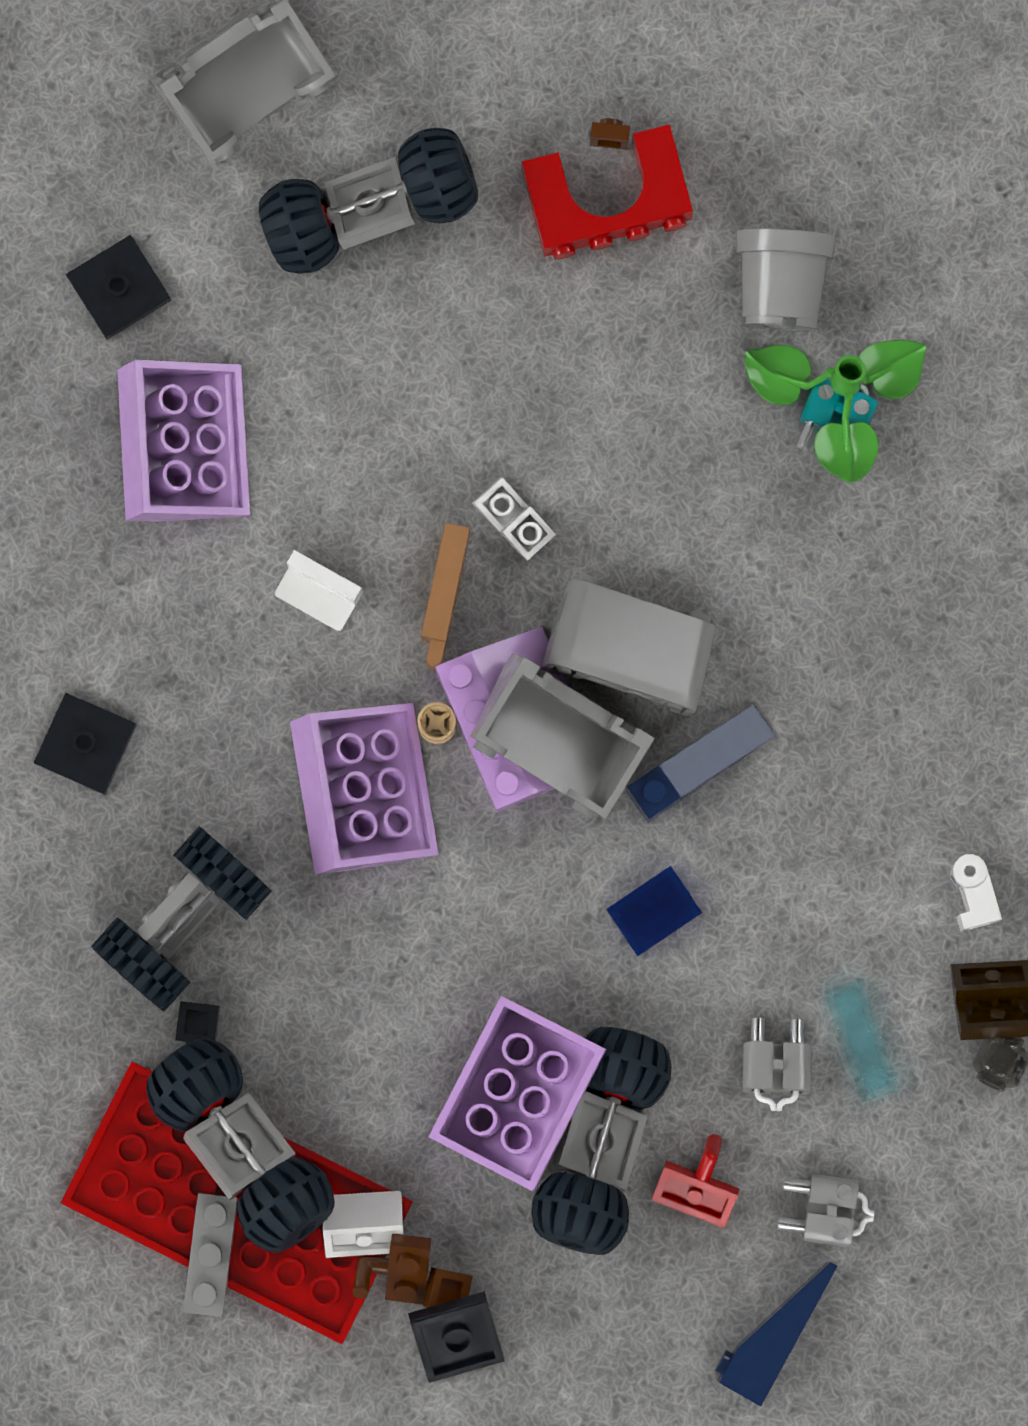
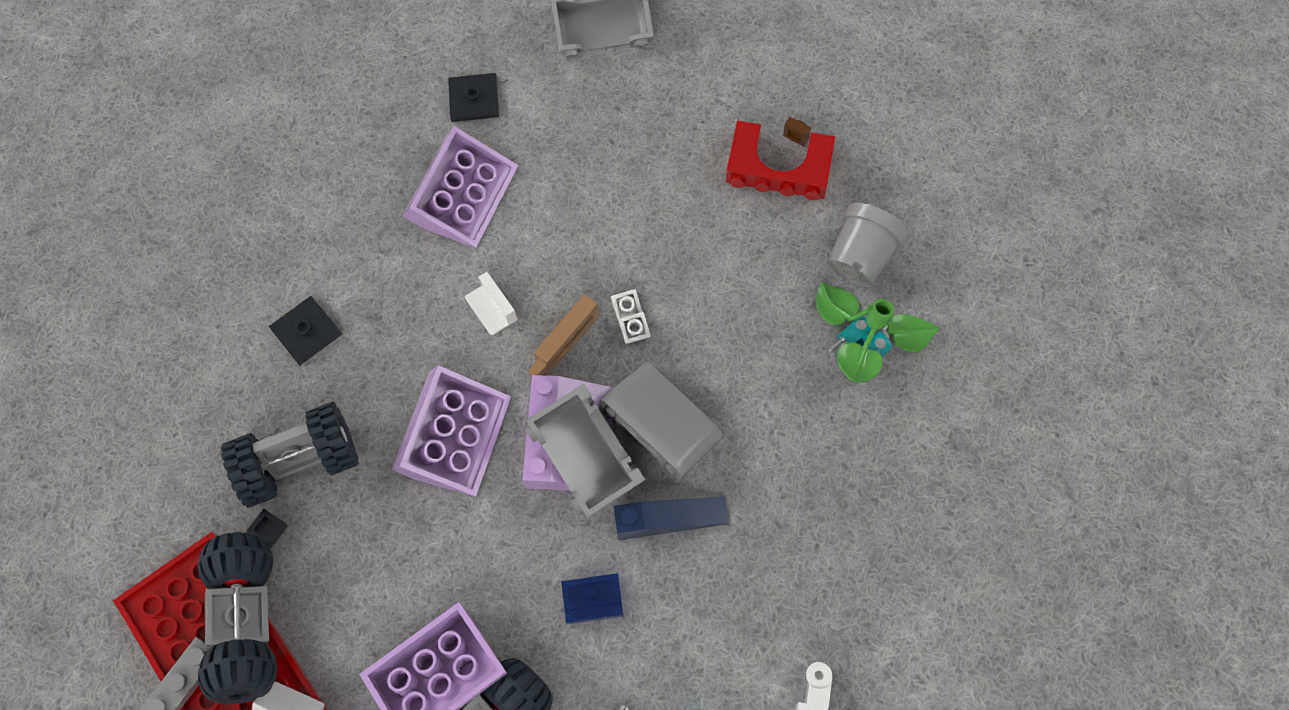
camera: 30 degrees right, 15 degrees down
(368, 202) = (678, 104): black plate -> none
(433, 718) = (515, 408): tan wheel -> none

